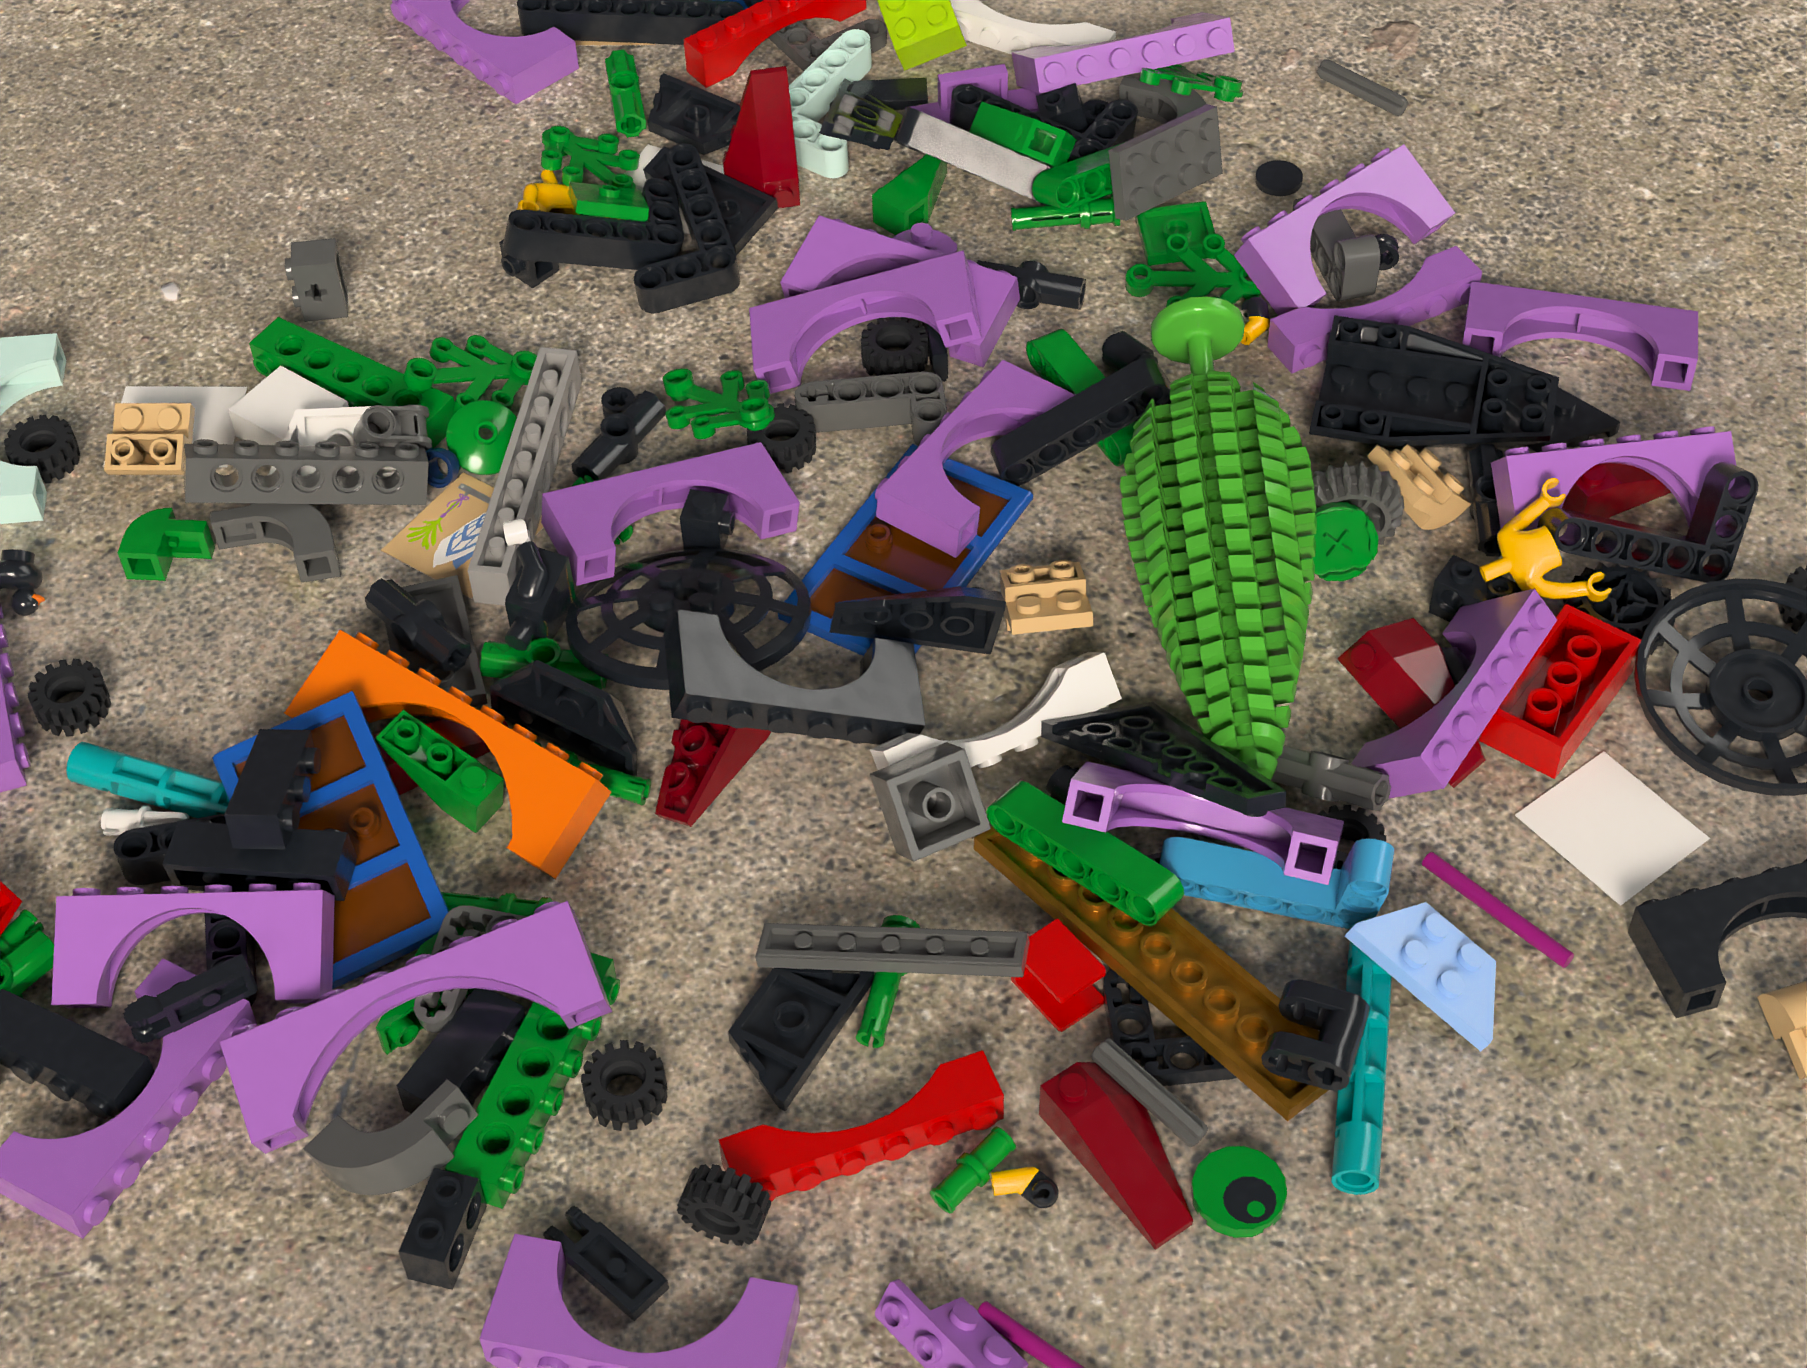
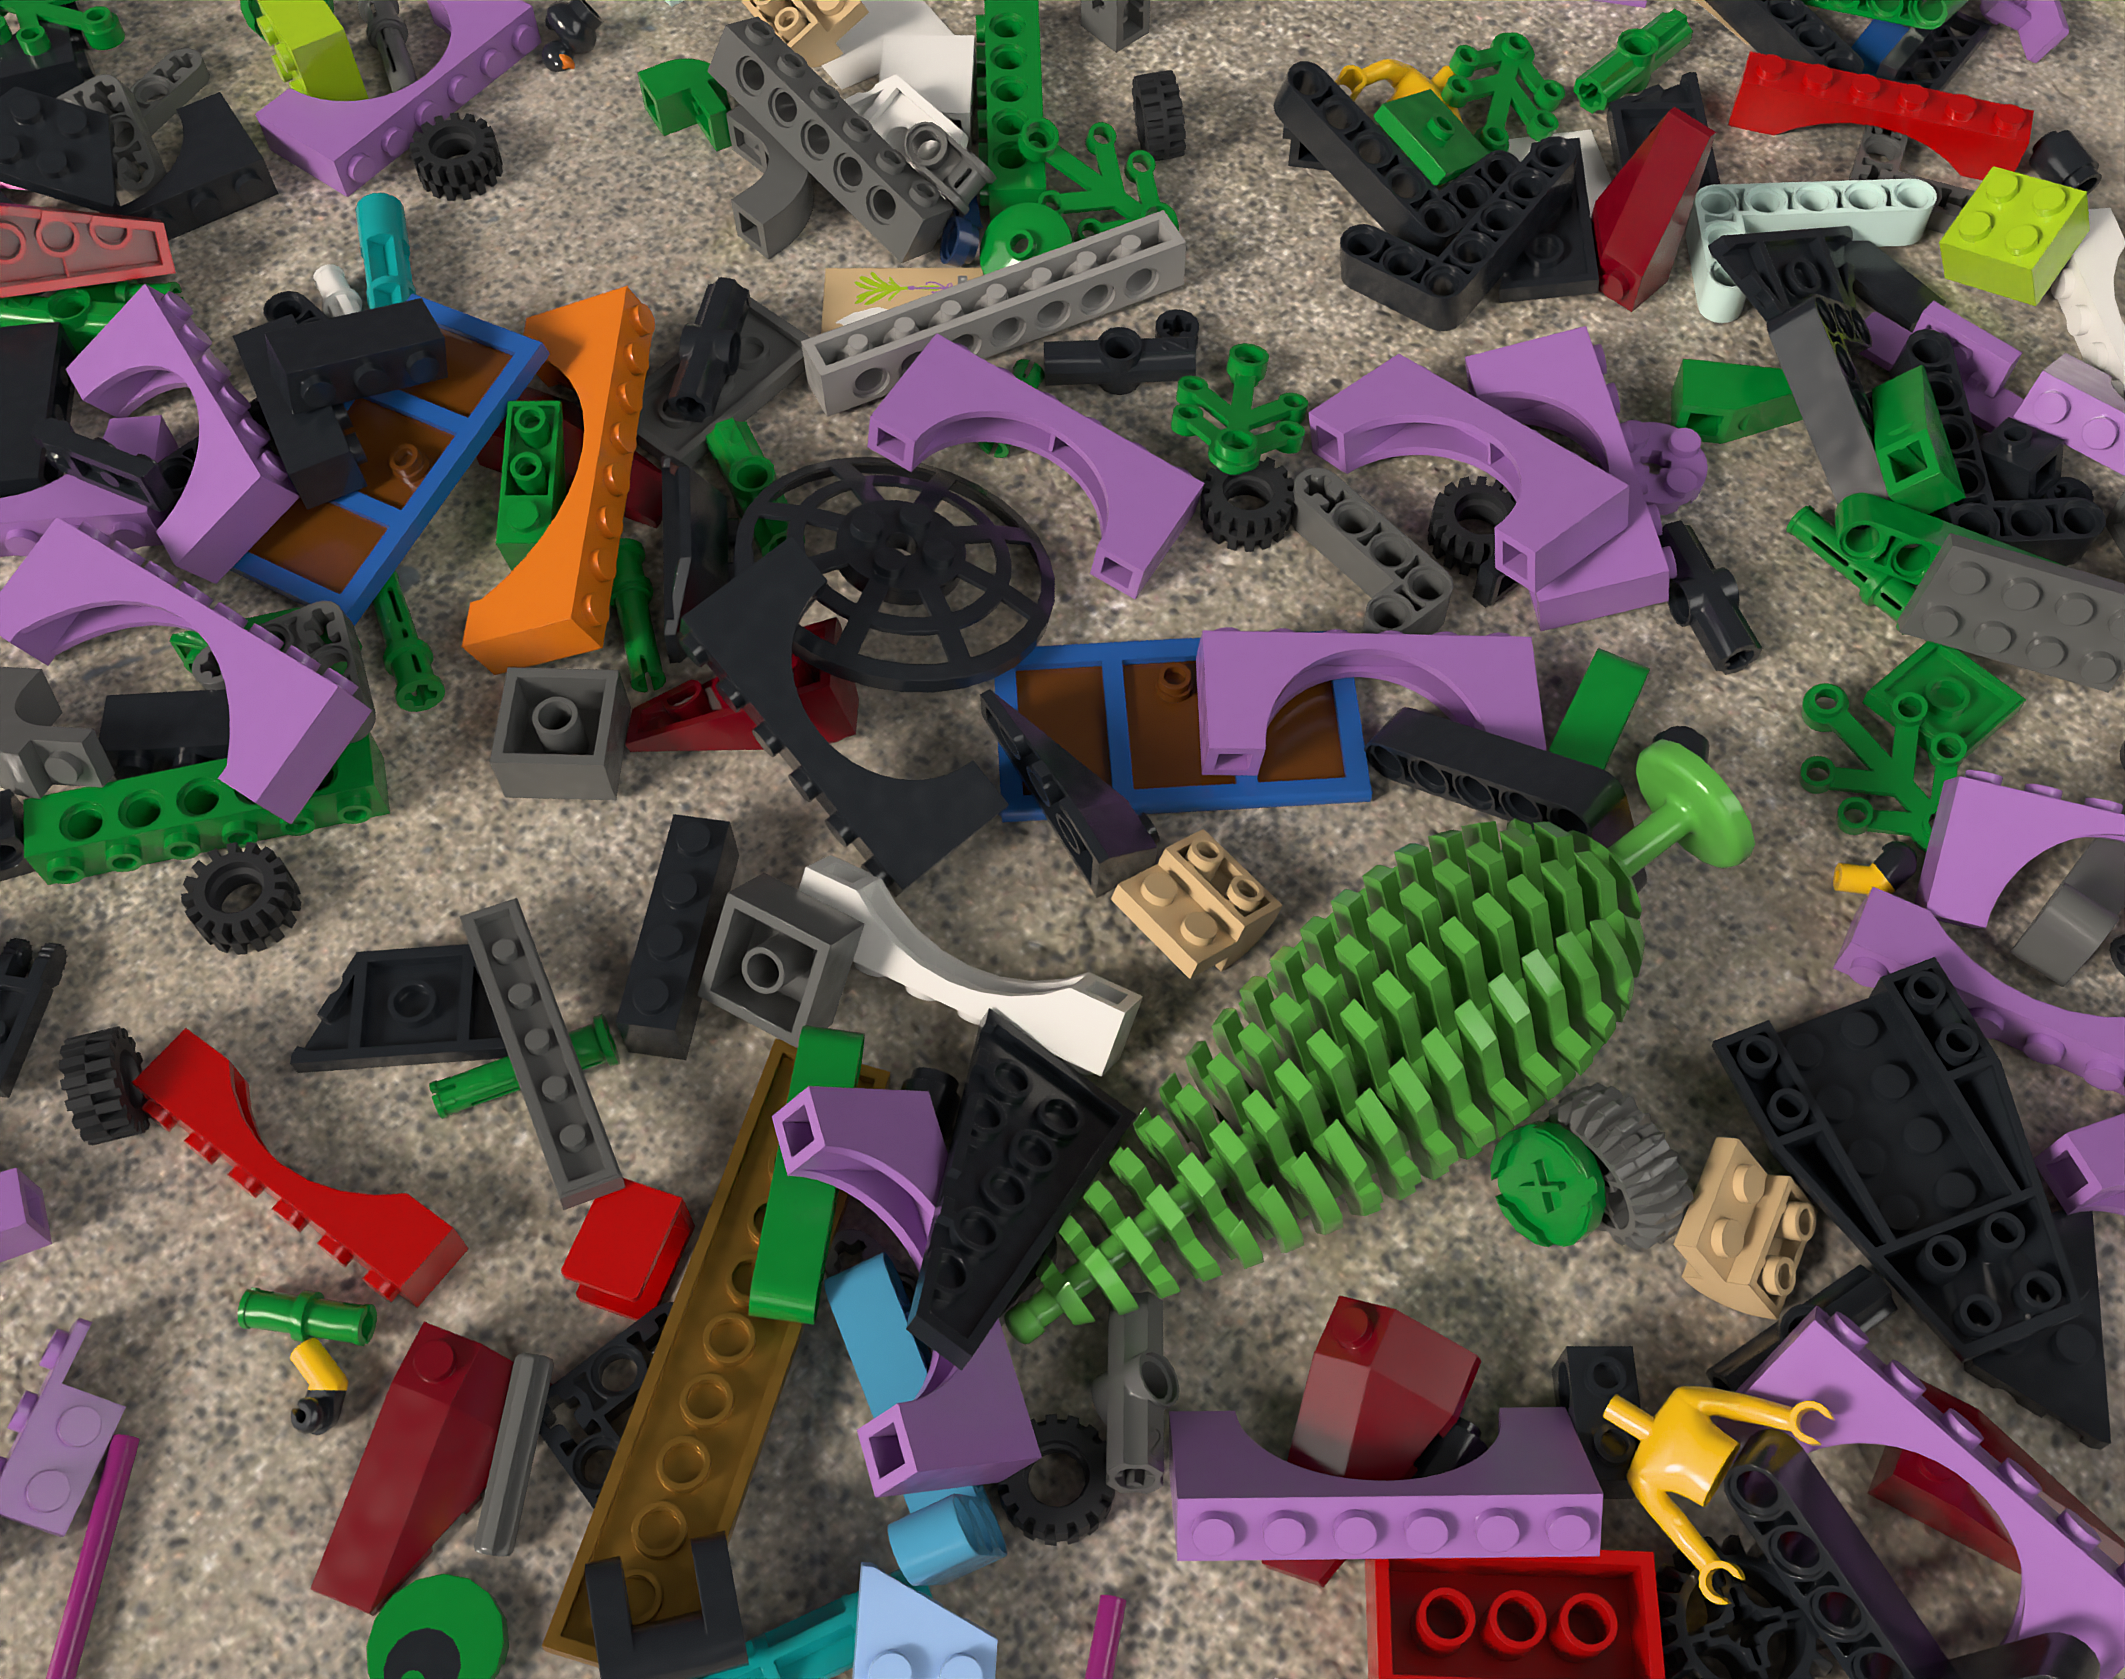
camera: 55 degrees right, 10 degrees up
(446, 314) = (1159, 115): none -> black tyre
(540, 591) = (805, 413): black torso -> none
(657, 845) = (561, 733): none -> dark grey brick
(706, 520) = (1059, 506): black brick -> none
(859, 854) = (677, 937): none -> black brick

